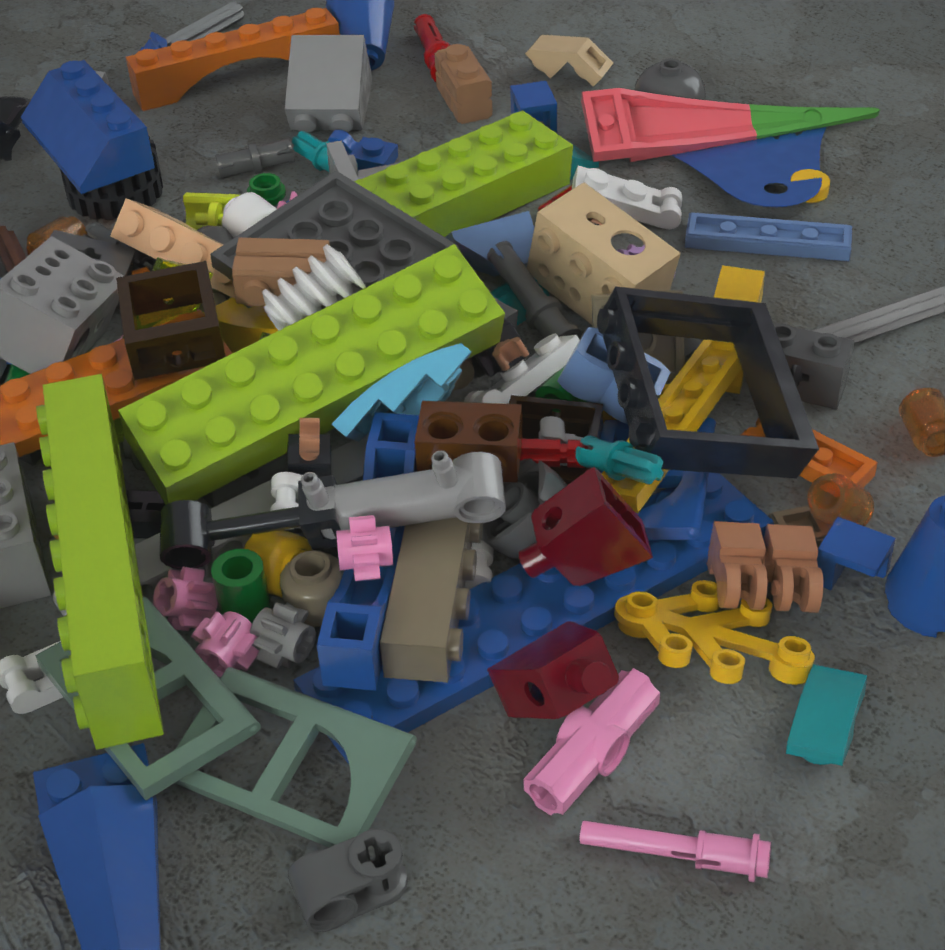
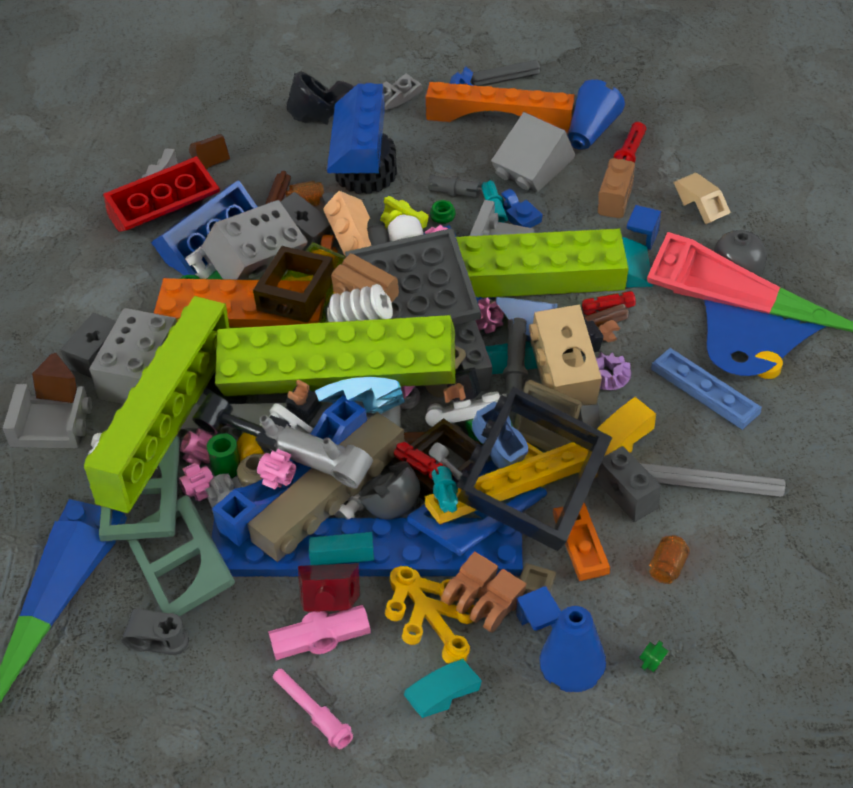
camera: 35 degrees right, 5 degrees up
(470, 428) = (377, 435): reddish brown brick -> none
(528, 614) = (341, 548): none -> teal slope
(585, 532) = (398, 521): dark red torso -> none
(639, 201) = (638, 319): white plate -> none
(839, 497) = (560, 578): clear orange brick -> none

